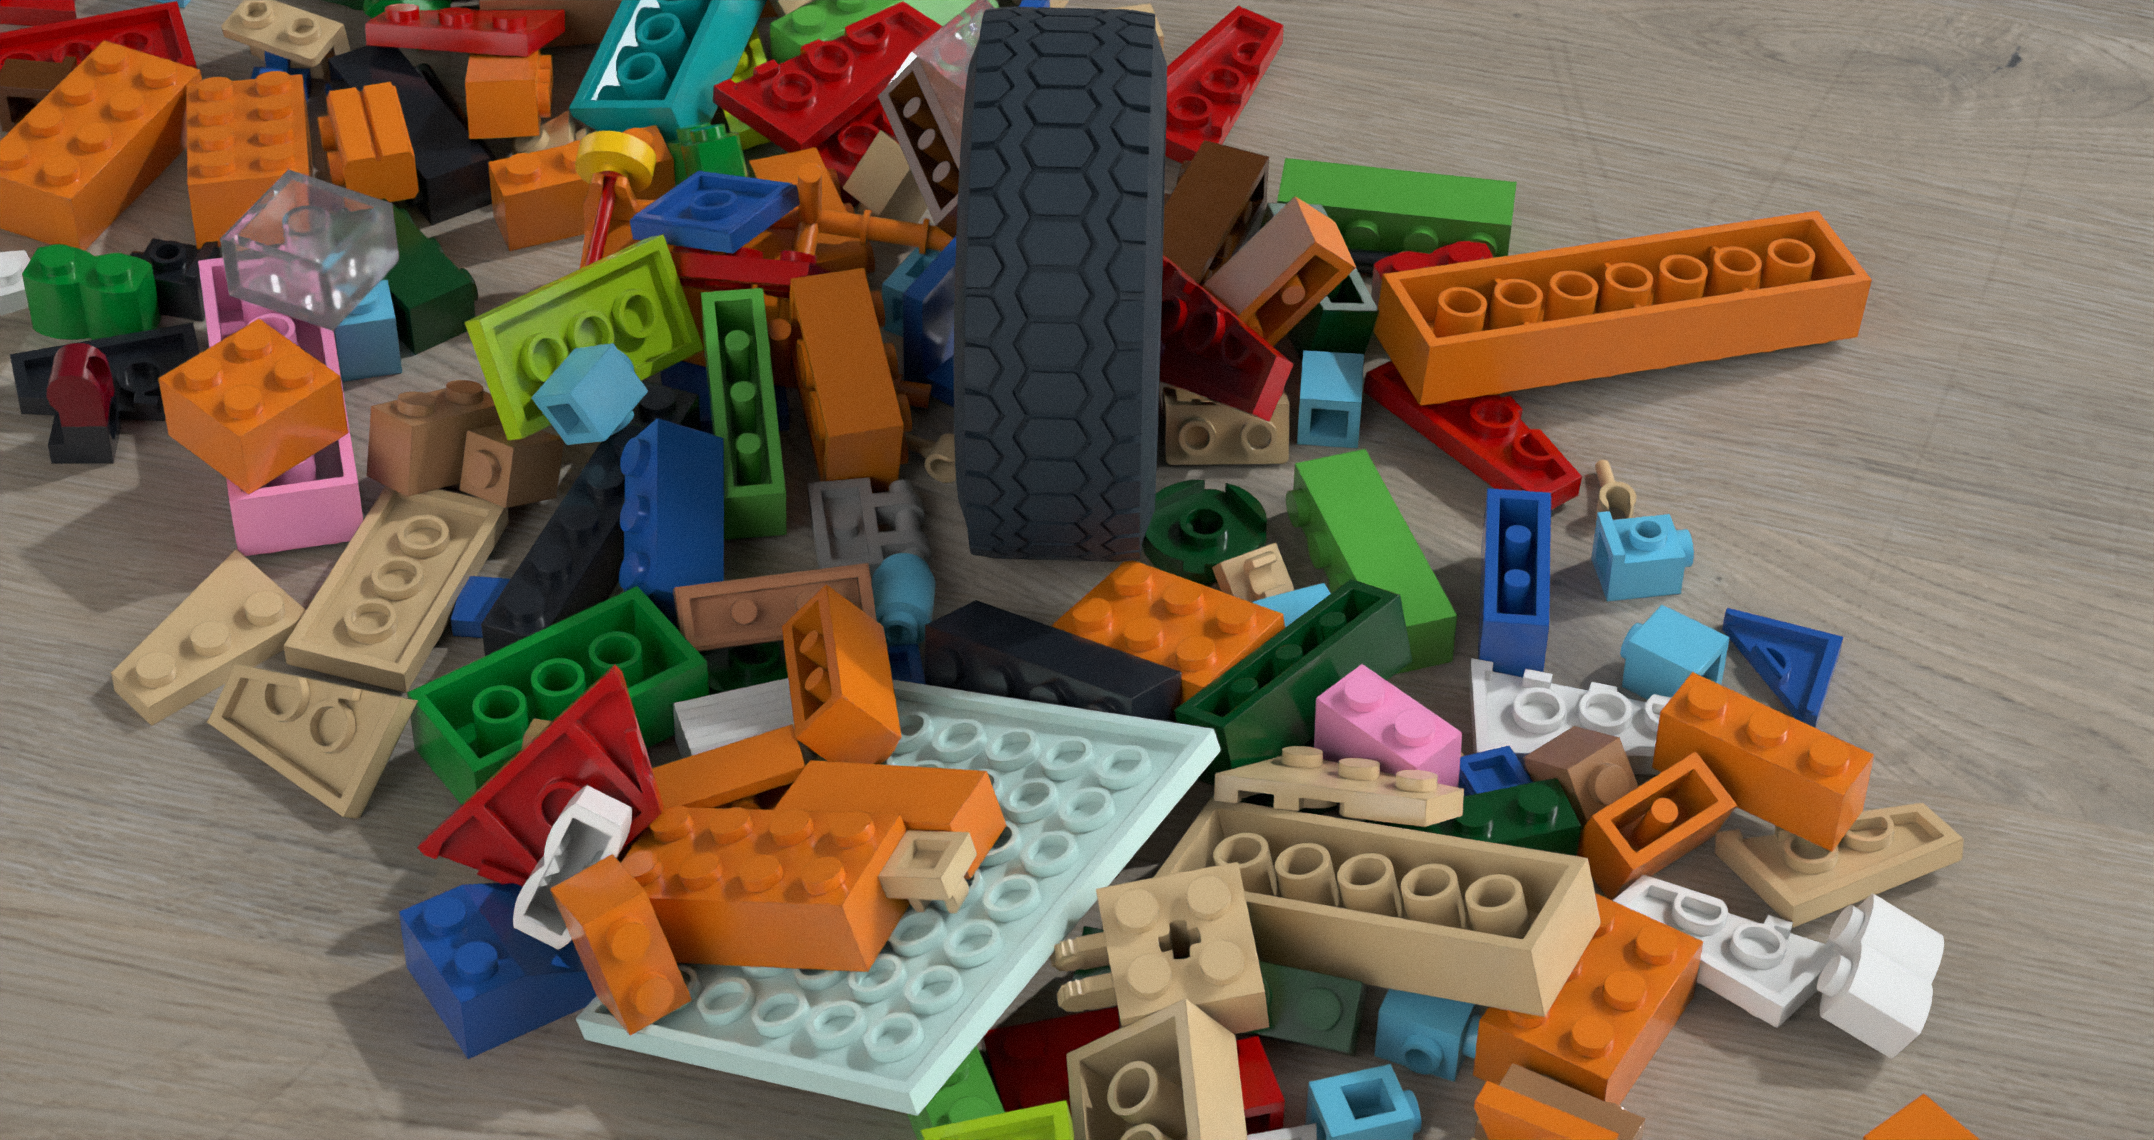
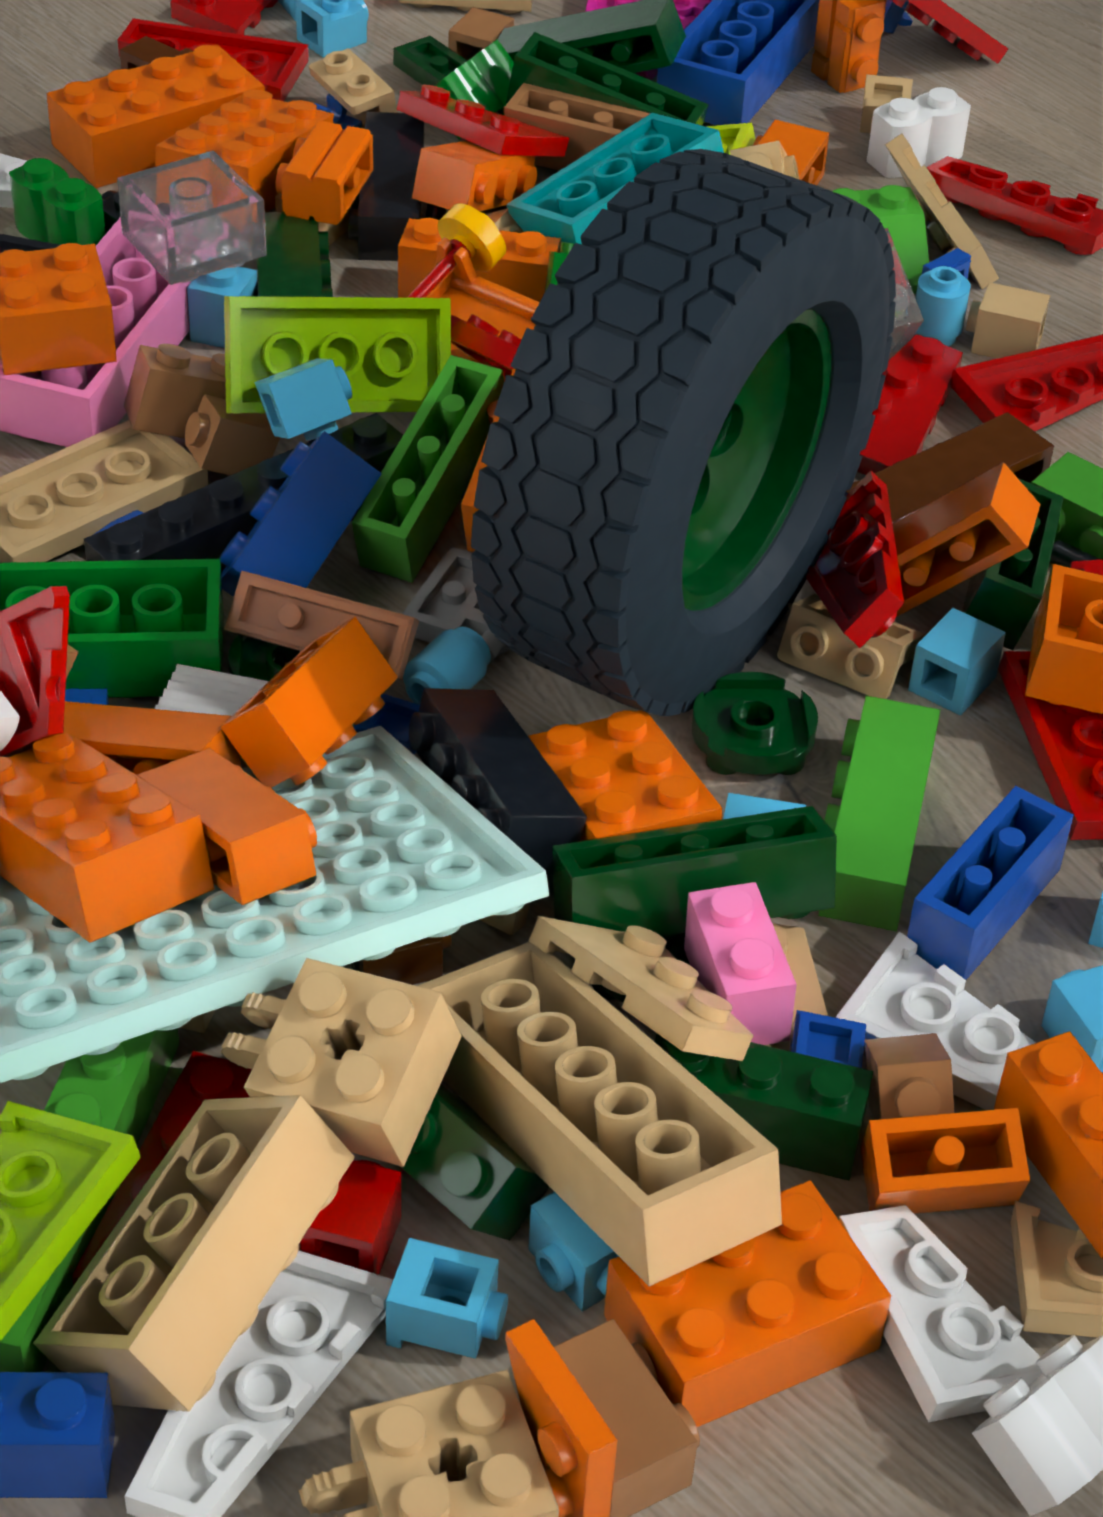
camera: 30 degrees right, 0 degrees up
(715, 211) = (500, 300): blue tile -> none
(929, 868) = (194, 877): tan tile -> none
(1254, 574) = (760, 774): tan tile -> none

